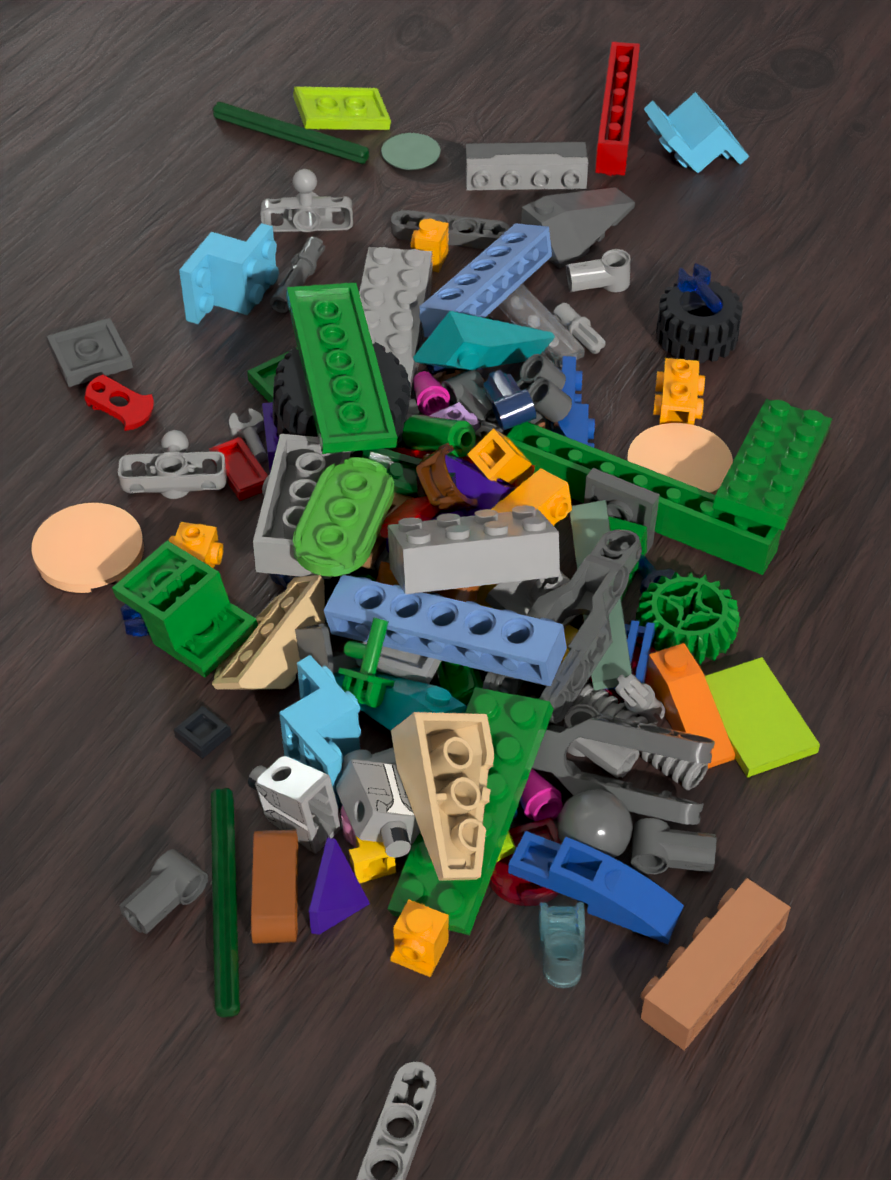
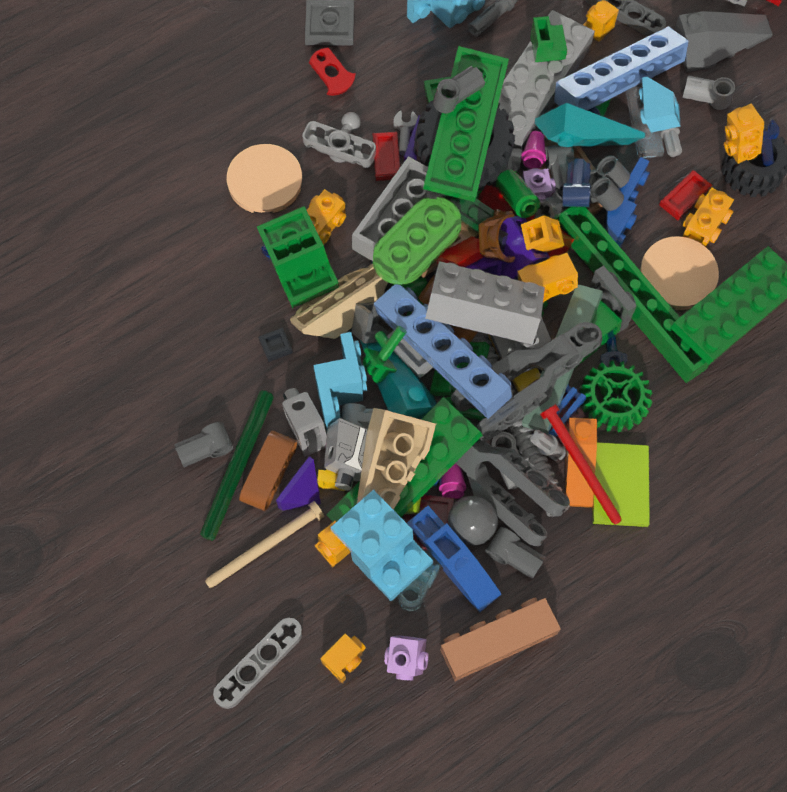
camera: 25 degrees right, 20 degrees up
(312, 325) = (458, 89): none -> dark grey piece
(368, 912) = (265, 545): none -> tan bar
(383, 271) = (547, 40): none -> green piece
(494, 895) = (382, 545): none -> medium azure bracket
(513, 1082) = (343, 656): none -> light orange brick
(555, 299) = (660, 106): none -> medium azure slope
(600, 1021) = (406, 657): none -> lavender brick
(636, 384) = (685, 195): none -> red tile
(675, 279) = (744, 133): none -> light orange brick
(697, 699) = (581, 463): none -> red bar

